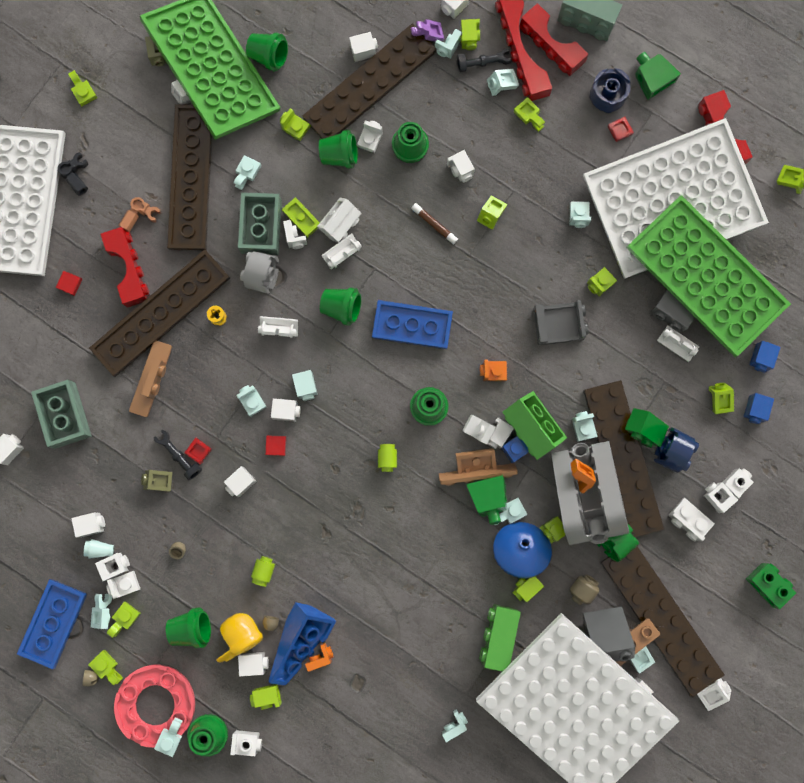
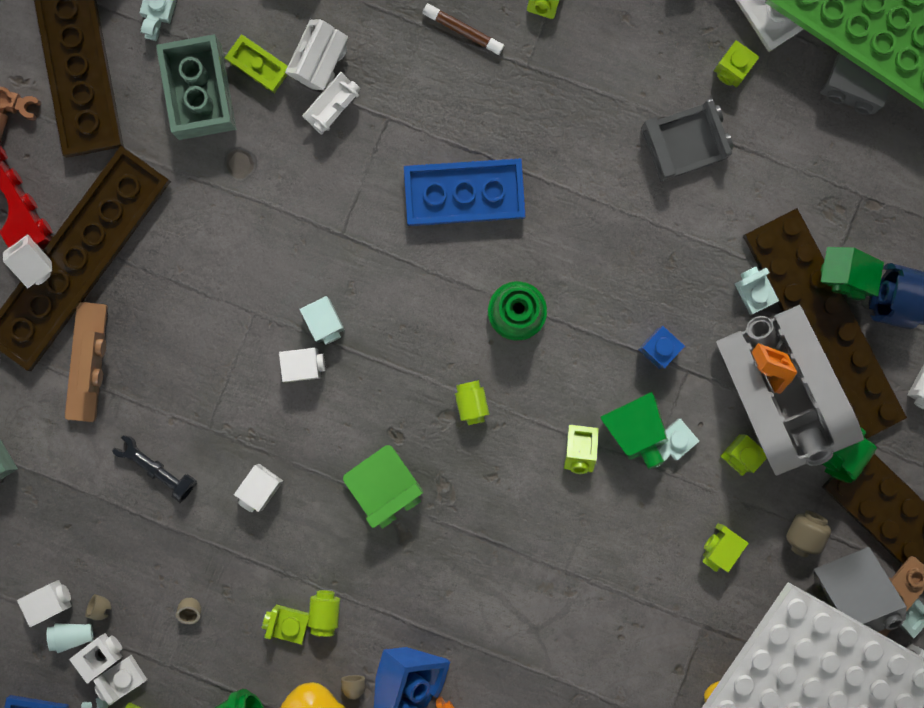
camera: 15 degrees left, 5 degrees up
(120, 535) = (96, 608): none -> dark tan hinge
(130, 308) = (28, 262): none -> white brick
(157, 480) = (132, 513): olive bracket -> none
(198, 451) = (184, 455): red tile -> none
(216, 309) = (156, 248): yellow bush -> none
(237, 573) = (286, 624): none -> lime bracket
(251, 400) = (246, 361): light aqua bracket -> none
(260, 271) = (214, 162): light grey brick -> none
(276, 445) = (299, 421): red tile -> none
(278, 326) = (261, 239): white hinge -> none
(291, 233) = (247, 91): white bracket -> none
(319, 498) = (383, 486): none -> bright green bracket
(341, 304) = (350, 185): green piece -> none
(450, 503) = (581, 449): none -> bracket
(477, 466) = (609, 386): medium nougat bracket -> none
(479, 429) = (600, 329): white bracket -> none
(494, 370) = (602, 235): orange bracket -> none
(499, 637) = (699, 633): bright green brick -> none
(500, 434) = (631, 330): white brick -> none
(518, 559) = (696, 510): blue dish -> none
(534, 425) = (683, 306): bright green brick -> none
(678, 343) = (871, 133): white hinge -> none

